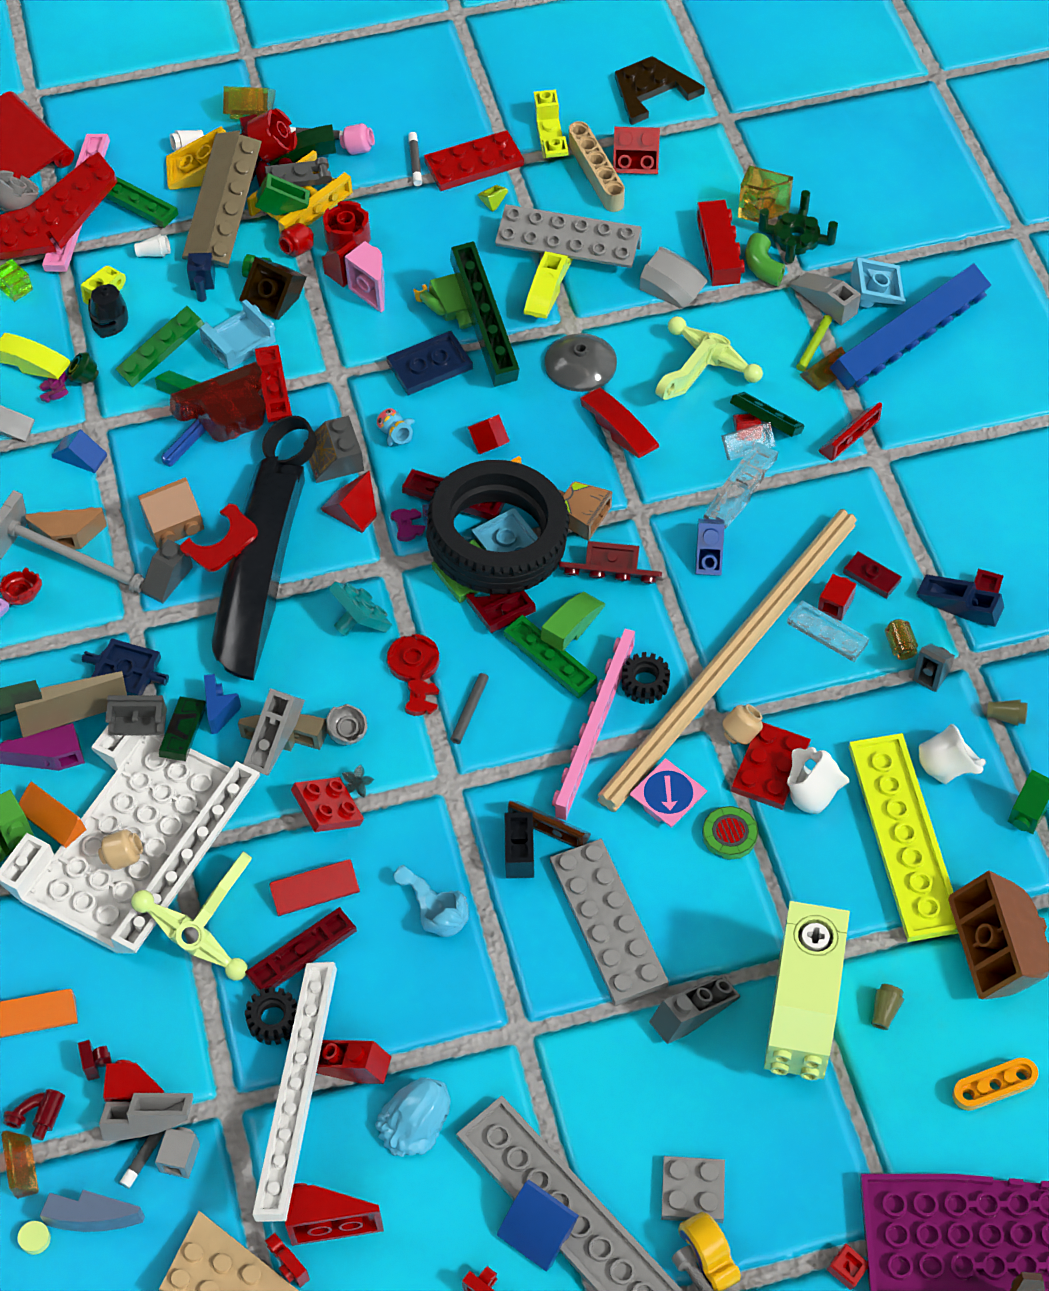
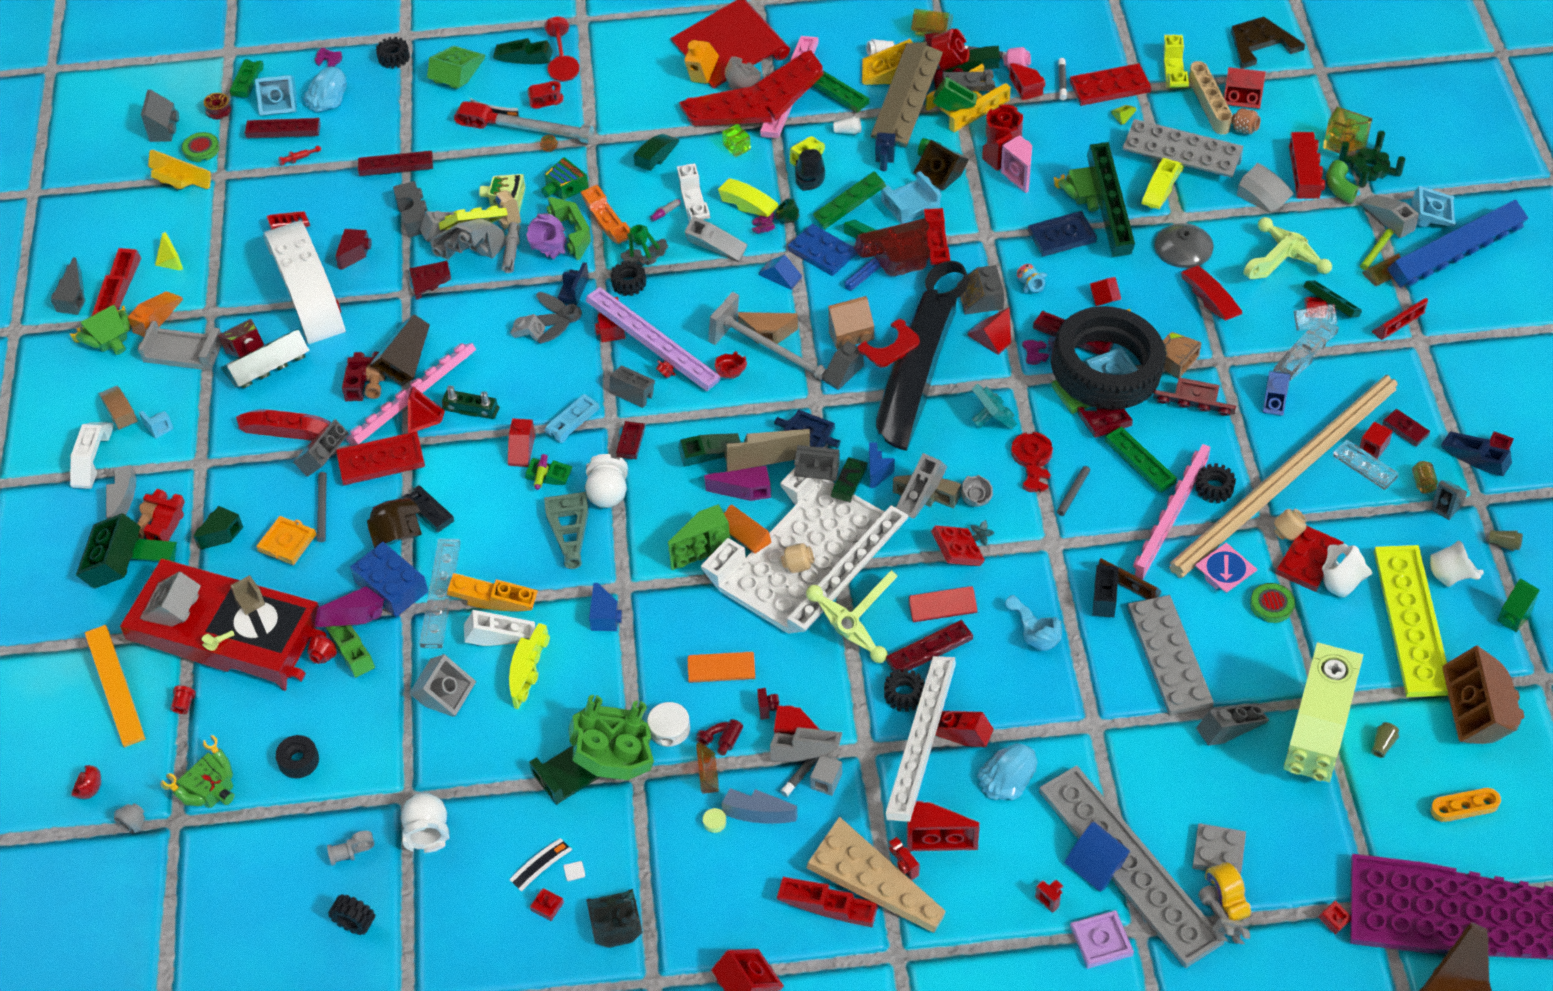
camera: 10 degrees right, 5 degrees down
(130, 415) = (822, 249): none -> blue plate
(296, 239) = (962, 131): red head -> none
(371, 166) = (1026, 81): none -> red slope
(571, 620) = (1159, 434): bright green slope -> none
(642, 193) = (1246, 121): none -> nougat head

